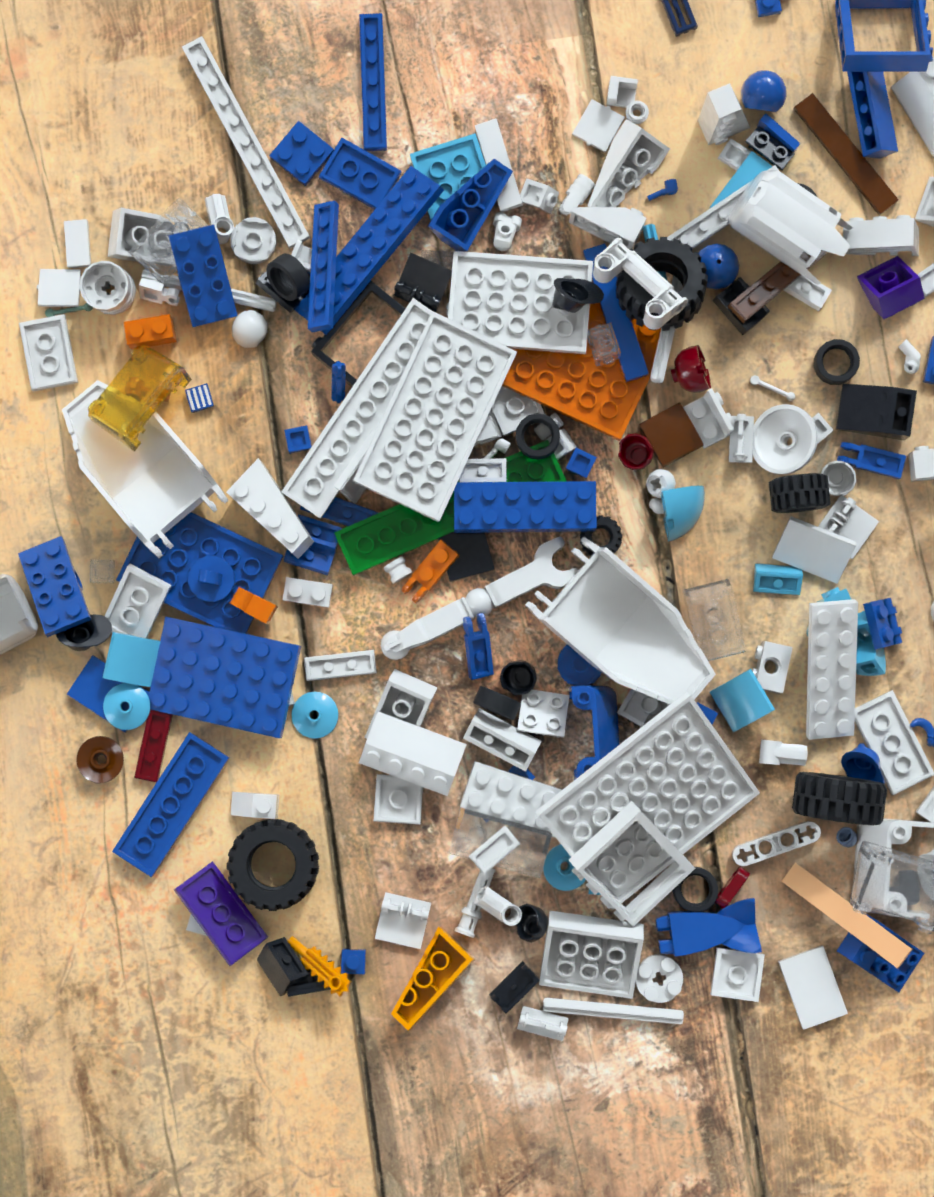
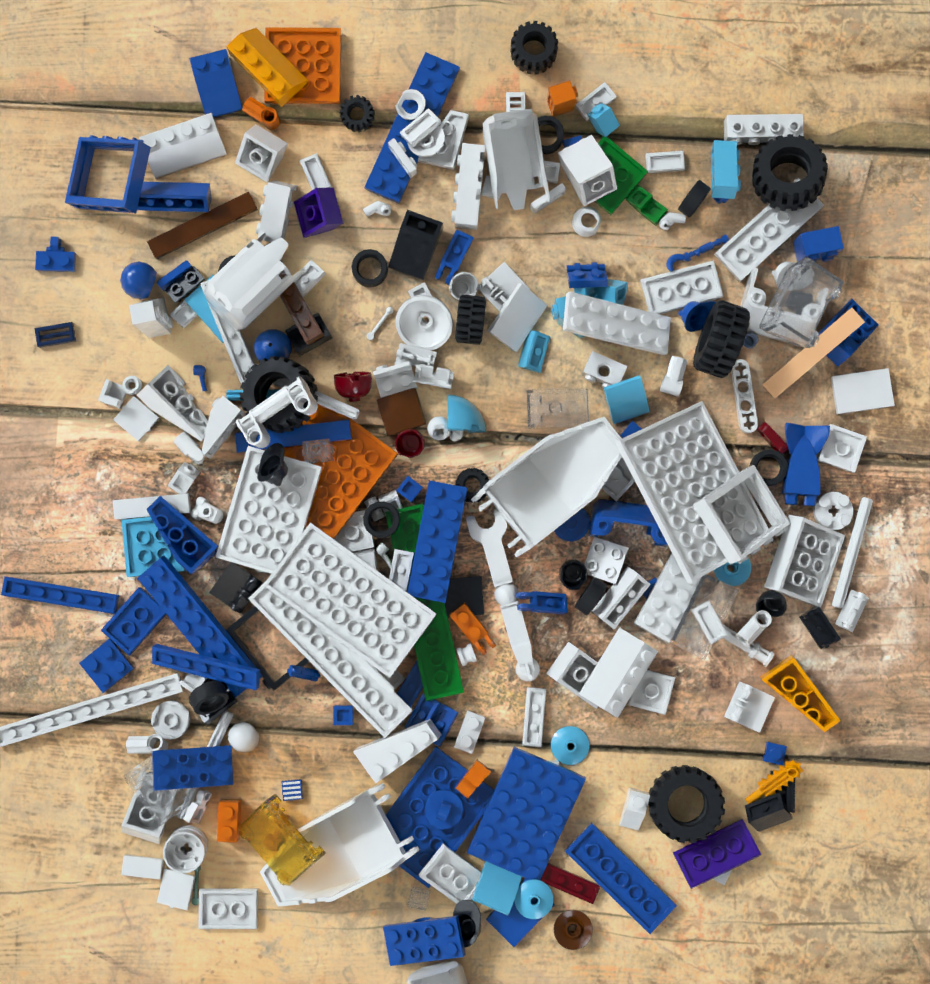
camera: 80 degrees left, 0 degrees up
(721, 474) = (425, 375): none -> white hinge

